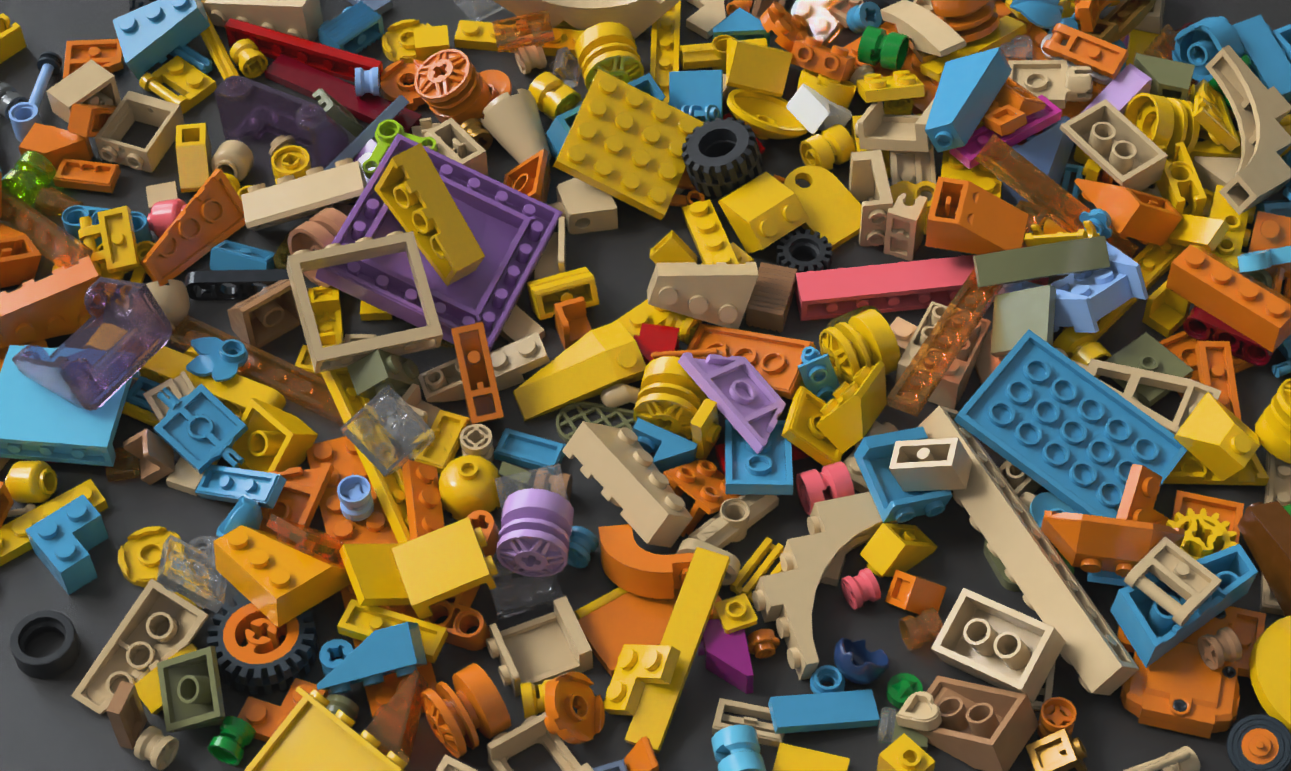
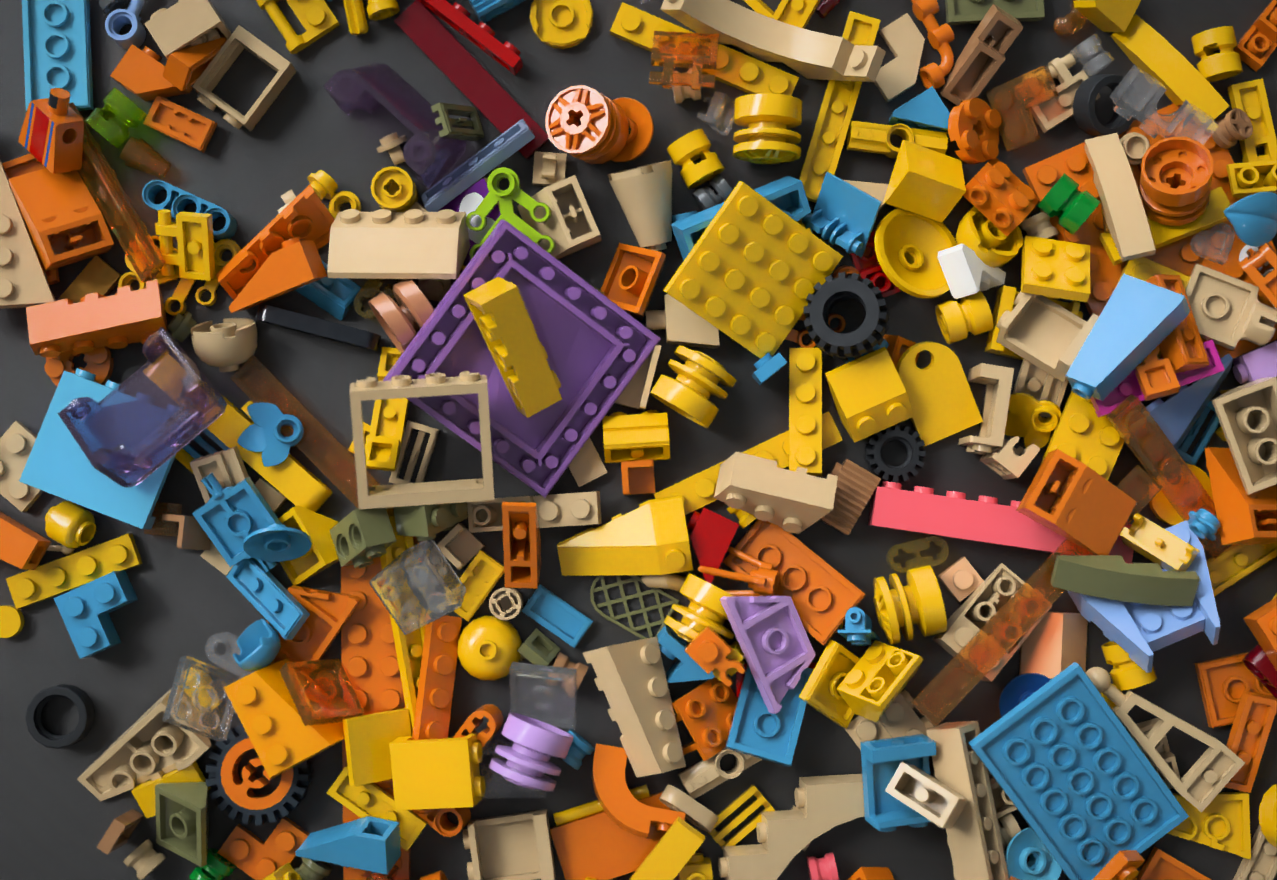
camera: 10 degrees right, 35 degrees up
(142, 554) = (173, 634): yellow tile -> none
(161, 192) = (255, 175): tan tile -> none
(163, 215) = (254, 213): coral head -> none
(193, 156) = (294, 139): yellow slope -> none
(202, 244) = (282, 273): none -> orange slope
(233, 158) = (334, 151): tan head -> none
(245, 435) = (277, 543): none -> dark azure dish
(265, 314) = (328, 377): medium nougat slope -> none
(323, 401) = (362, 537): none -> olive brick
(333, 649) = (328, 807): dark azure wheel -> none
(355, 498) = (368, 650): light blue wheel -> none
(367, 81) = (499, 82): light blue wheel -> none
(393, 82) = (528, 76): orange plate -> none
(430, 41) = (583, 38): yellow panel -> none
(477, 131) = (597, 187): pearl gold wheel -> none
(603, 239) = (693, 386): none -> yellow wheel
(665, 212) = (767, 367): none -> dark azure plate
(672, 250) = (762, 414): yellow panel -> none
(686, 401) = (711, 652): none -> orange plate
(830, 483) = (825, 751): coral wheel -> none
(857, 14) = (1065, 135): dark azure wheel -> none
(896, 548) = (865, 845): yellow slope -> none
(1021, 311) = (1081, 634): tile -> none
(1150, 355) = (1190, 695): olive plate -> none
(1165, 311) = (1234, 628): yellow panel -> none
(1217, 438) = (1222, 818): yellow slope -> none

